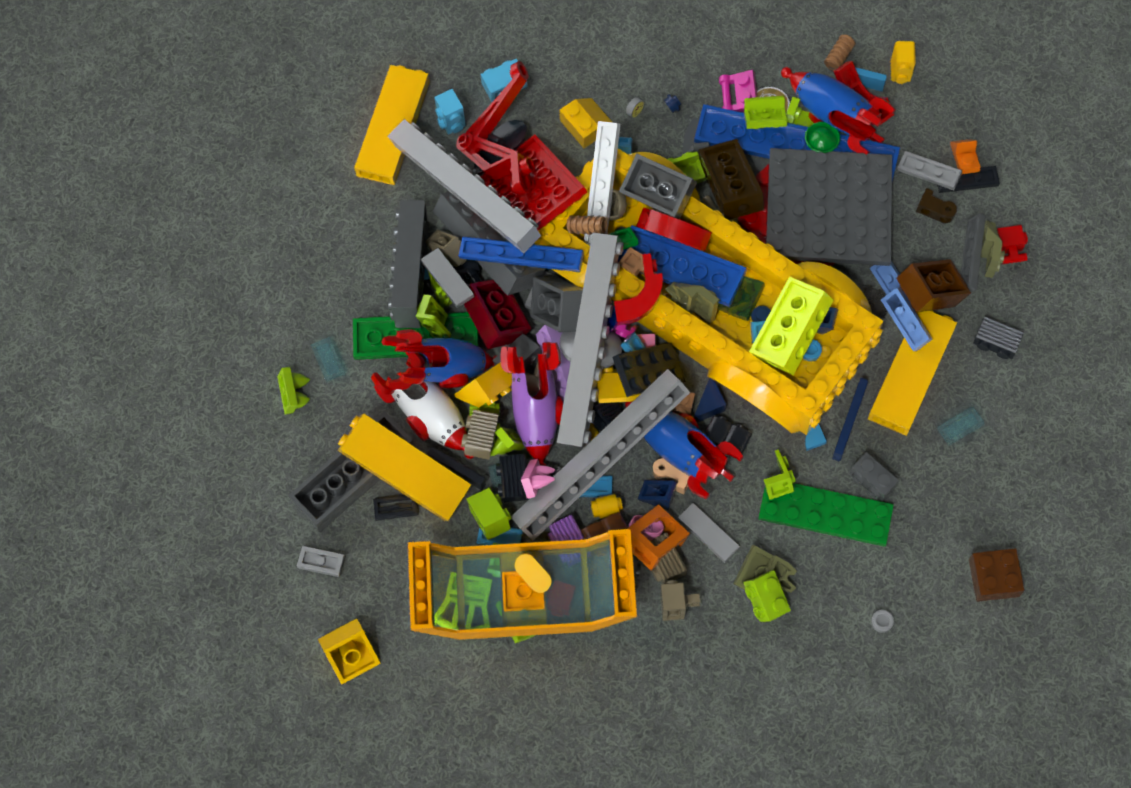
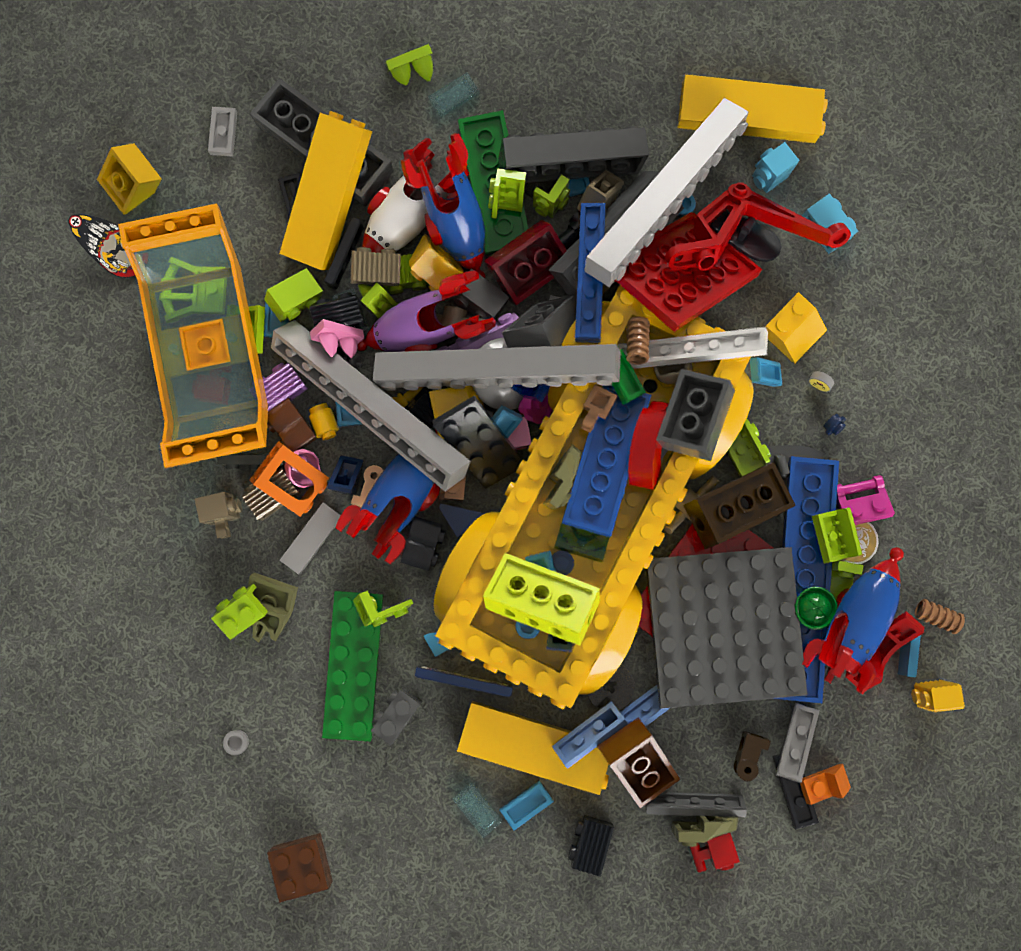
camera: 80 degrees right, 15 degrees up
(410, 672) = (102, 242): none -> shield
(447, 278) = (553, 196): light grey tile -> none
(533, 572) = (219, 350): yellow tile -> none
(638, 307) = (535, 412): red arch -> none
(960, 386) = (526, 805): none -> dark azure tile

